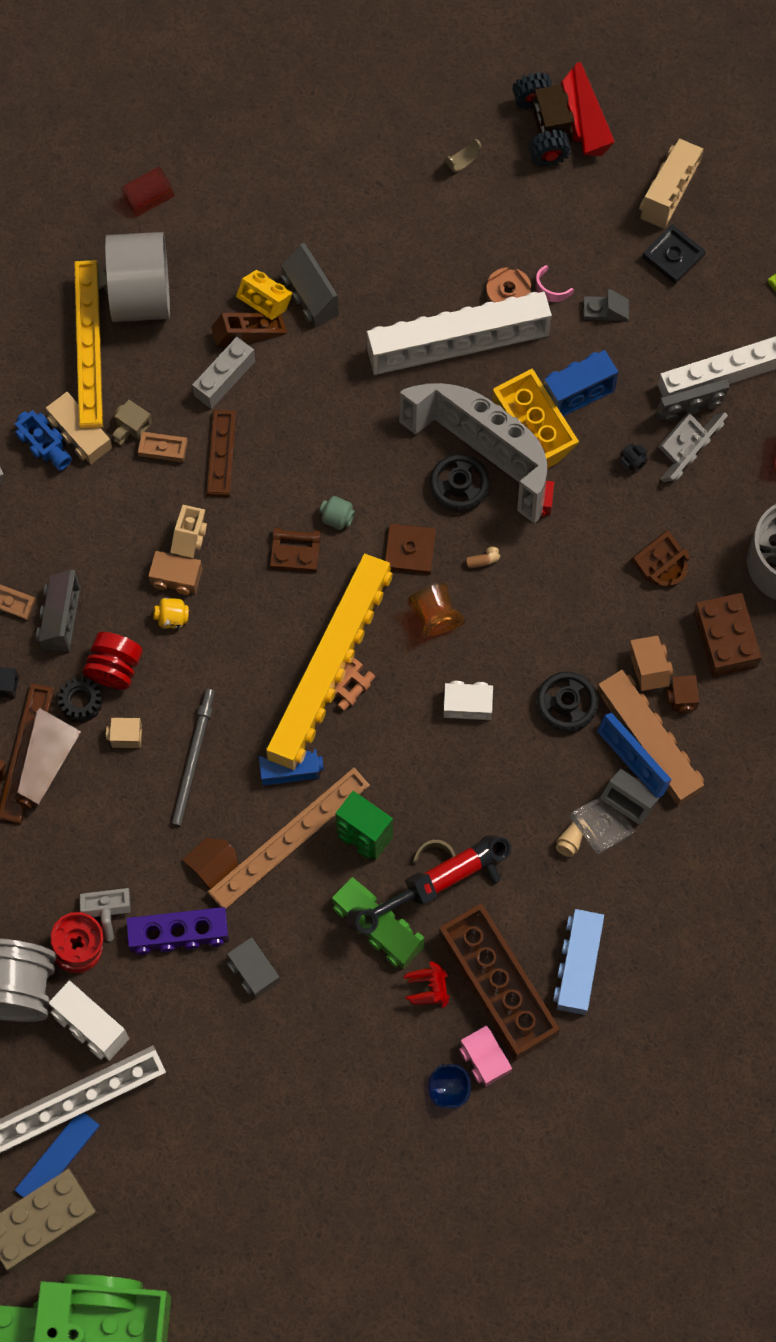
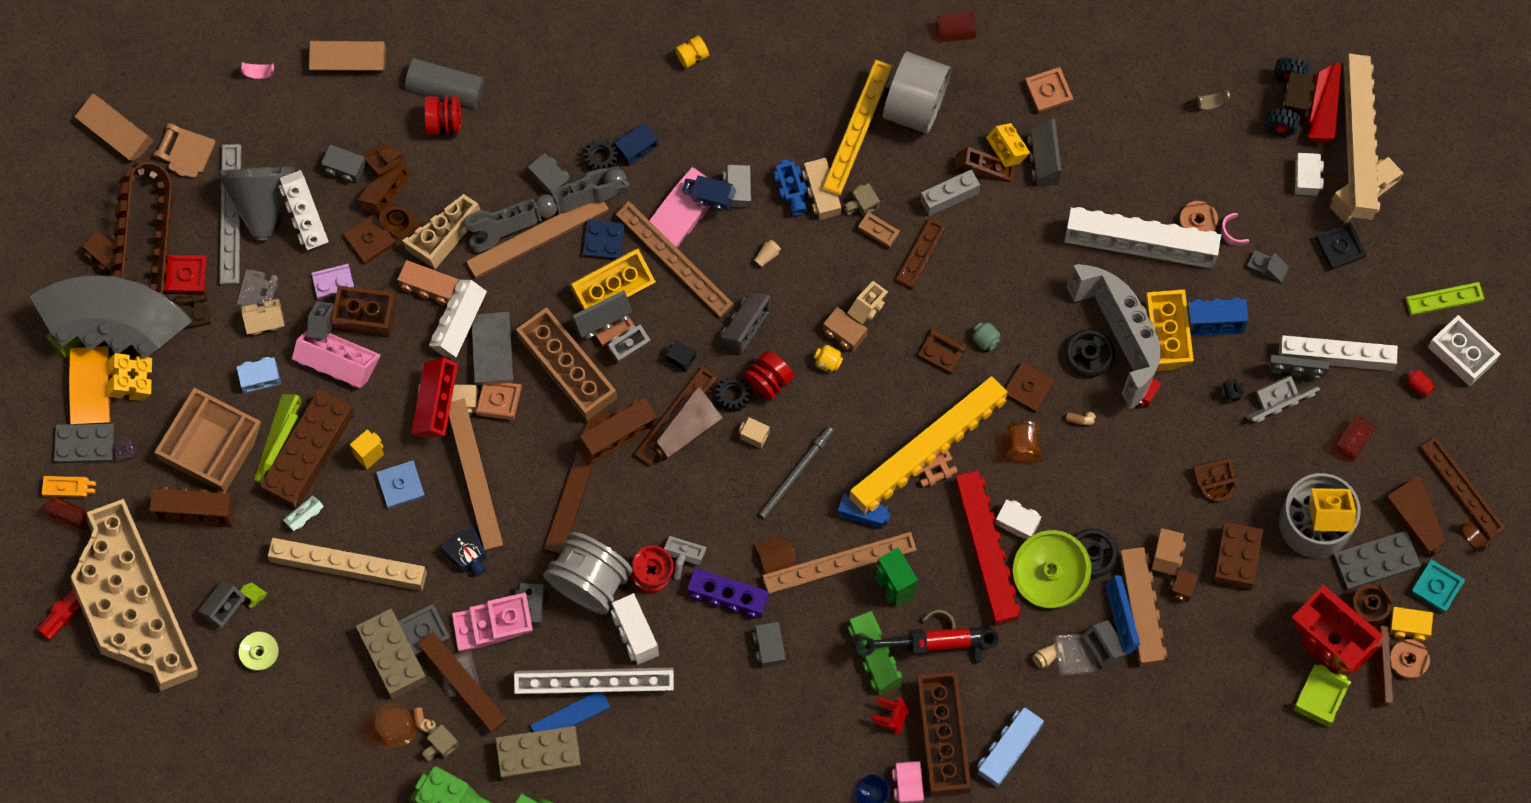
camera: 25 degrees right, 0 degrees up
(48, 525) = (767, 253): none -> tan cone
(280, 218) = (1049, 90): none -> nougat plate
(448, 748) = (986, 548): none -> red brick
(532, 739) = (1052, 569): none -> lime dish
(602, 192) = (1308, 174): none -> white brick
(642, 129) = (1360, 137): none -> tan brick

